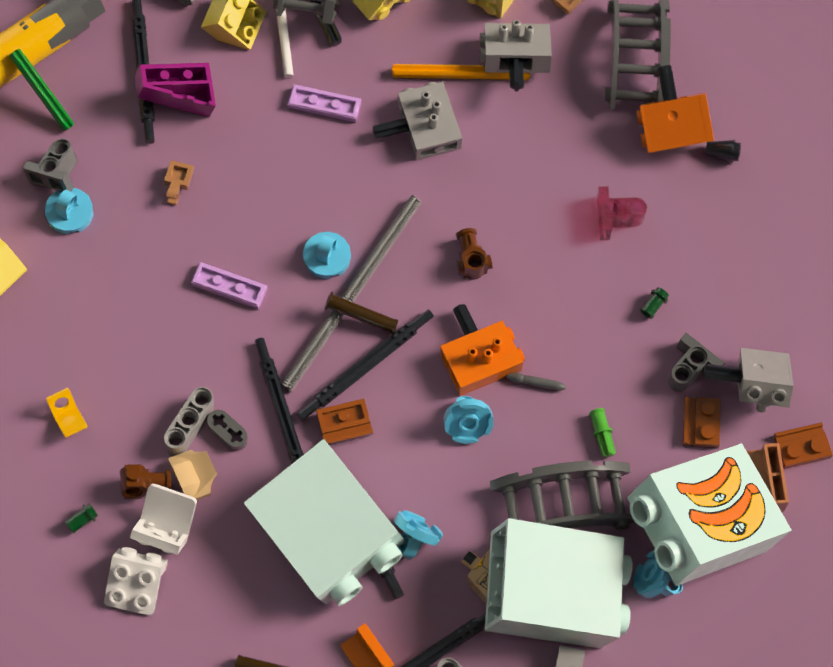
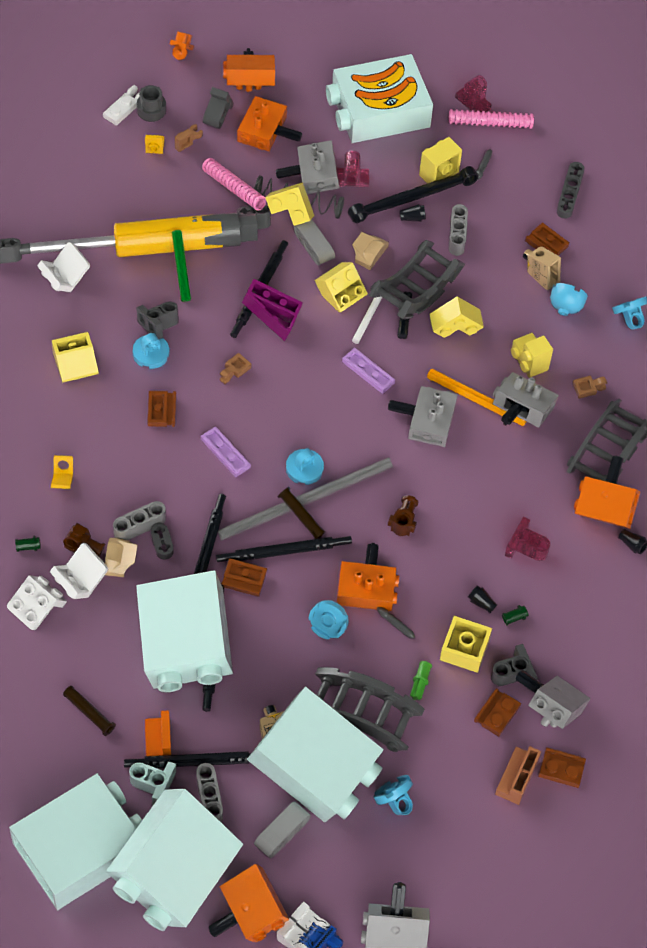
camera: 30 degrees right, 10 degrees down
(127, 273) = (161, 408): none -> dark orange plate
(415, 533) = (244, 671): medium azure tile -> none
(610, 304) = (482, 599): none -> black cone
(627, 366) = (465, 644): none -> light yellow brick
(707, 514) = (454, 767): light aqua brick -> none

